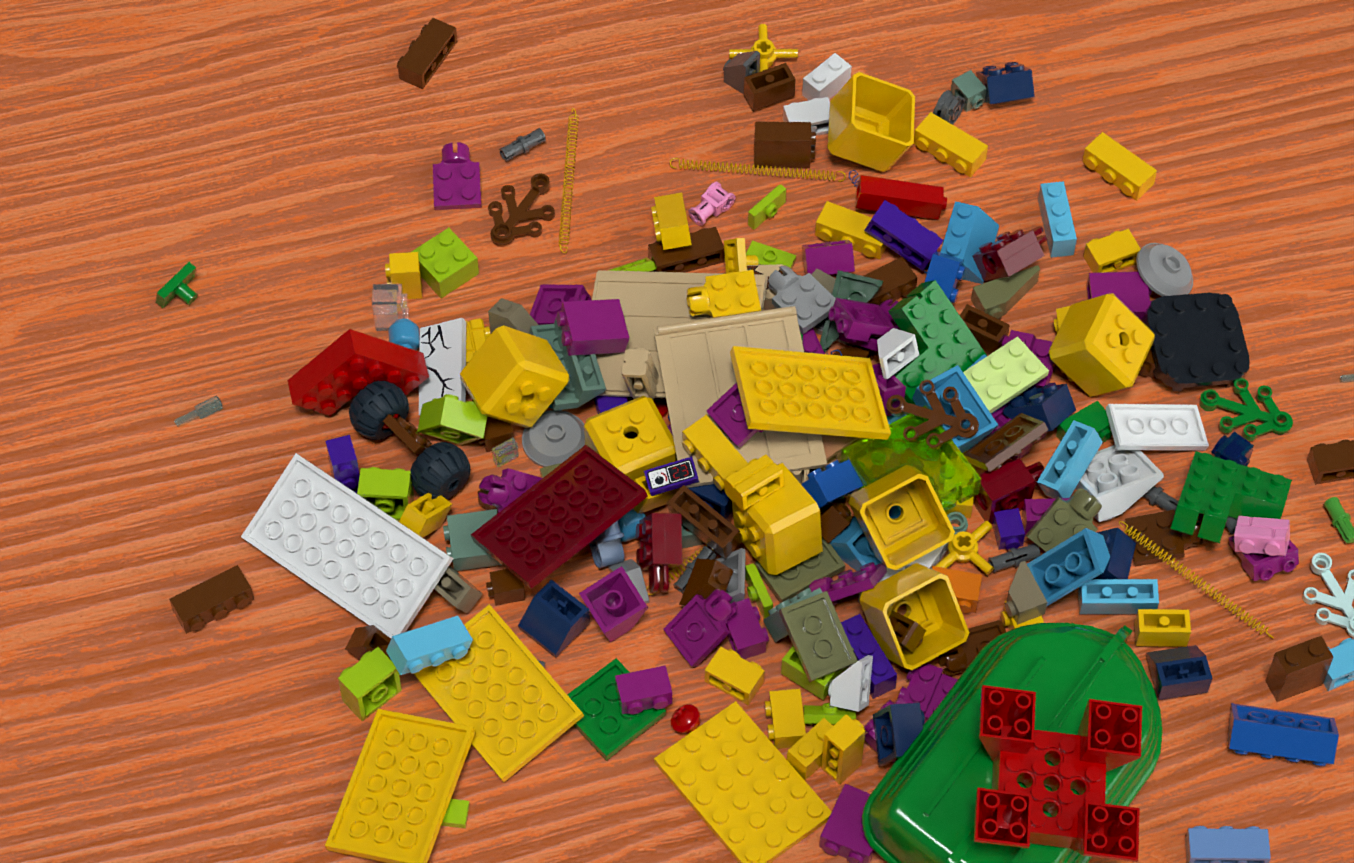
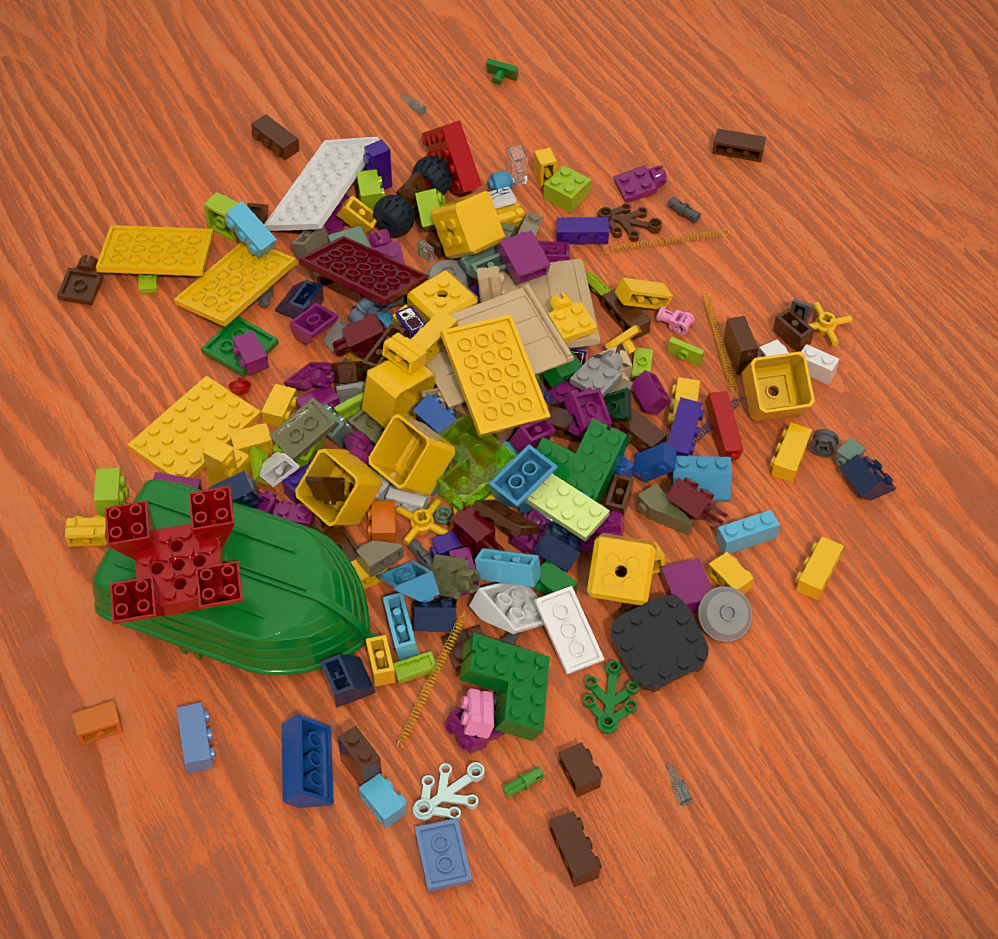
camera: 75 degrees right, 5 degrees down
(527, 265) = (582, 230): none -> dark purple brick
(896, 351) = (560, 429): white slope -> none
(935, 417) = (505, 479): reddish brown plant -> none
(1170, 592) = (414, 667): none -> lime plate
(1234, 449) = (562, 690): clear blue brick -> none

